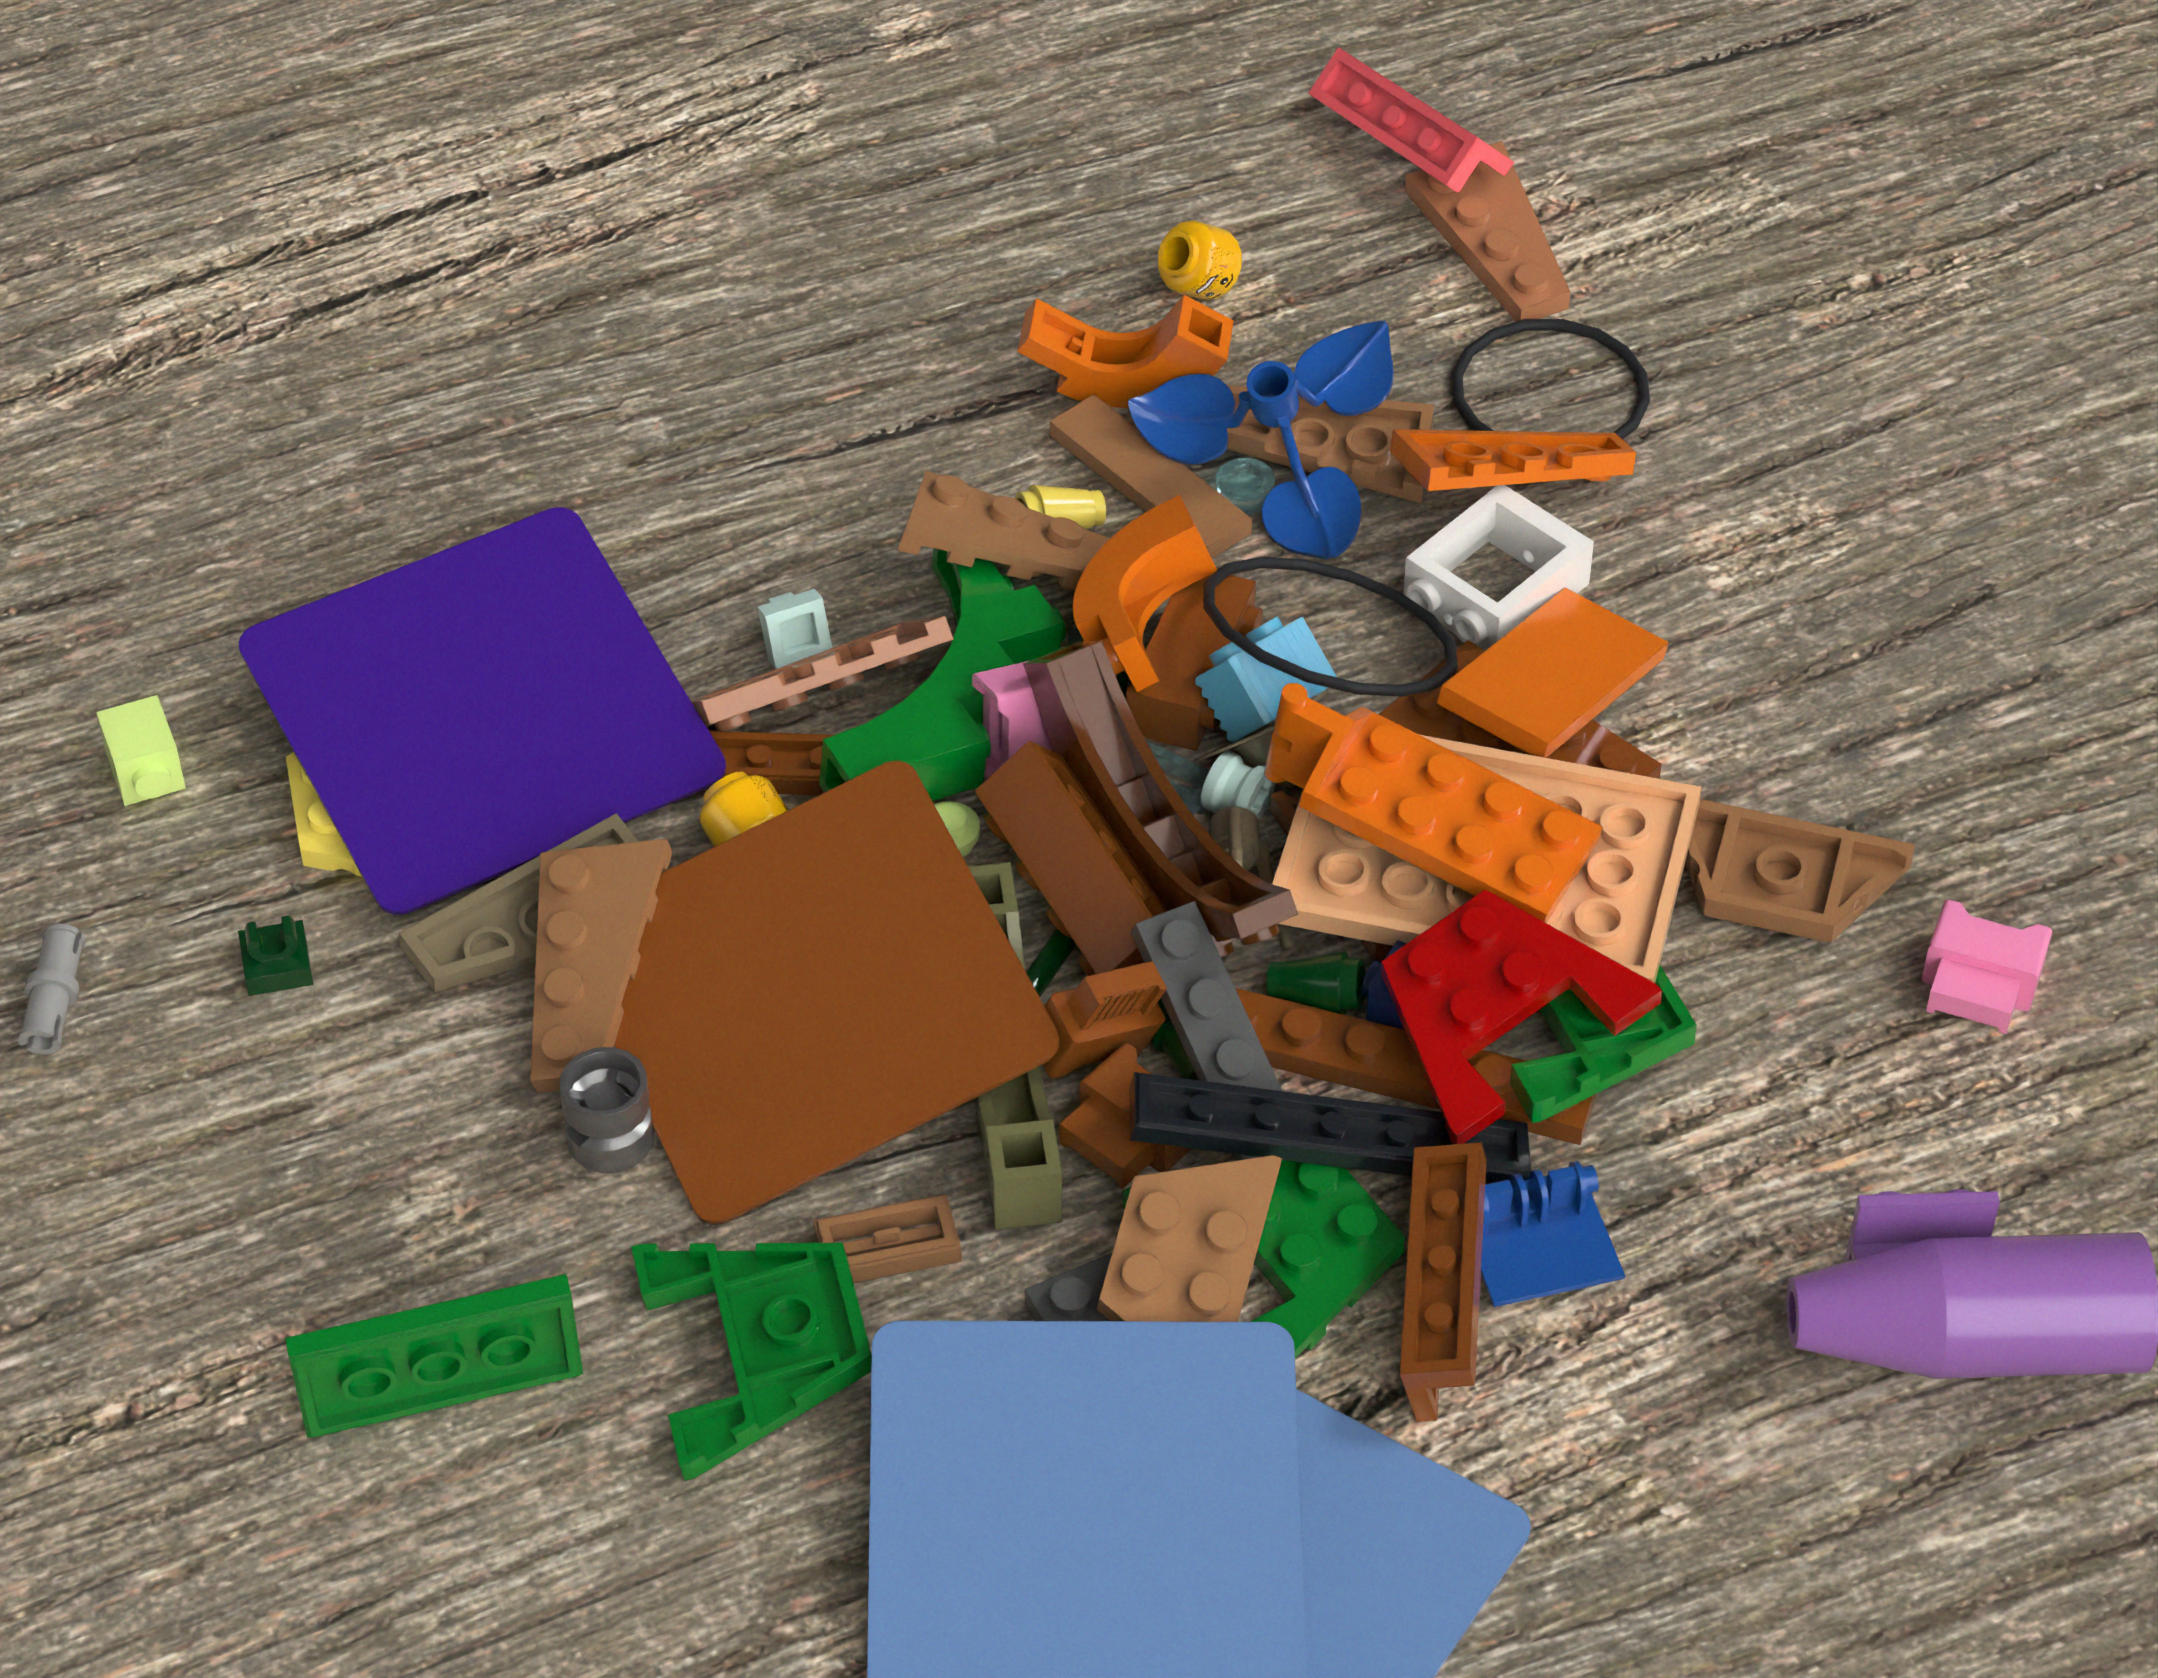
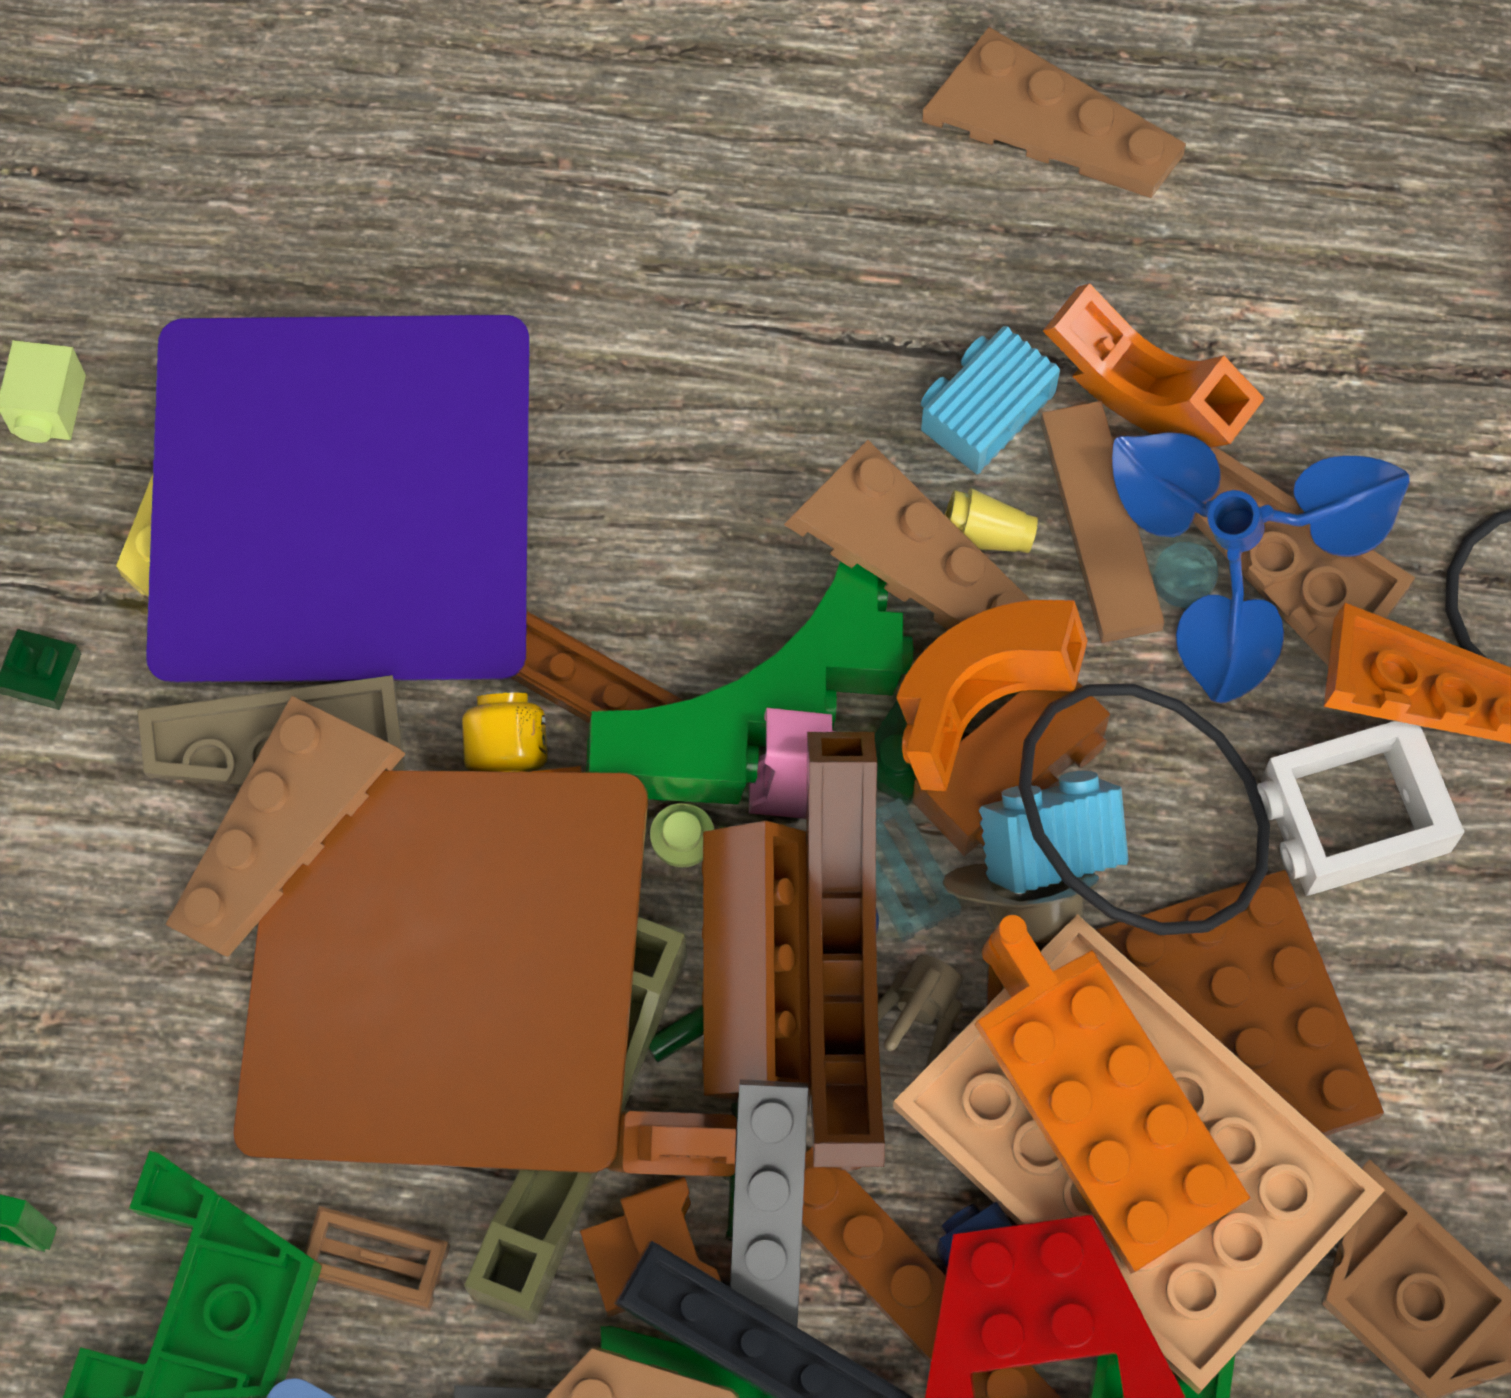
camera: 30 degrees right, 20 degrees up
(606, 1109) = (201, 998): flat silver wheel -> none
(794, 627) = (669, 539): light aqua tile -> none
(835, 667) = (681, 605): nougat wing -> none
(889, 224) = (1033, 105): none -> medium nougat wing
(998, 426) = (988, 398): none -> medium azure brick
(1199, 260) = (1289, 294): yellow head -> none
(1236, 785) = (961, 933): light aqua wheel -> none
(1322, 982) = (913, 1194): dark green cone -> none
(1552, 673) = (1335, 962): orange tile -> none

